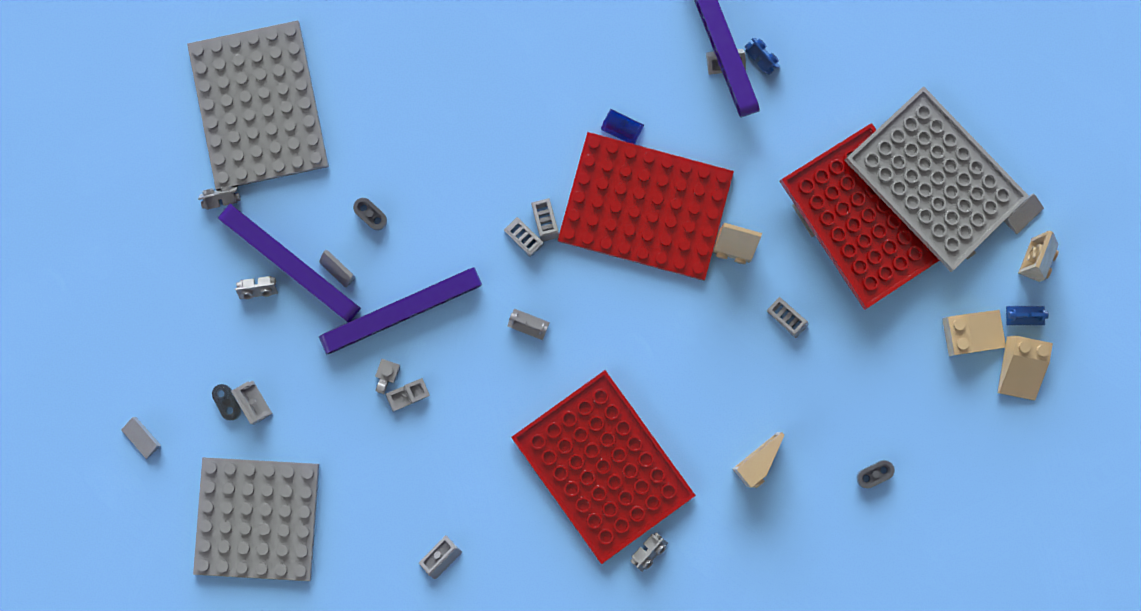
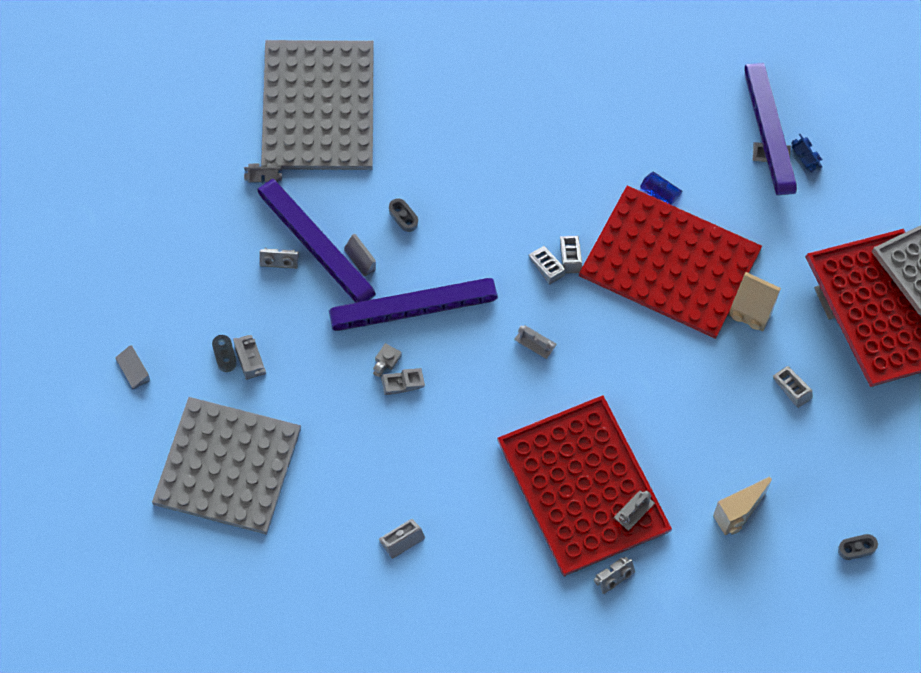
camera: 10 degrees right, 20 degrees down
(656, 486) = (634, 509): none -> light grey hinge

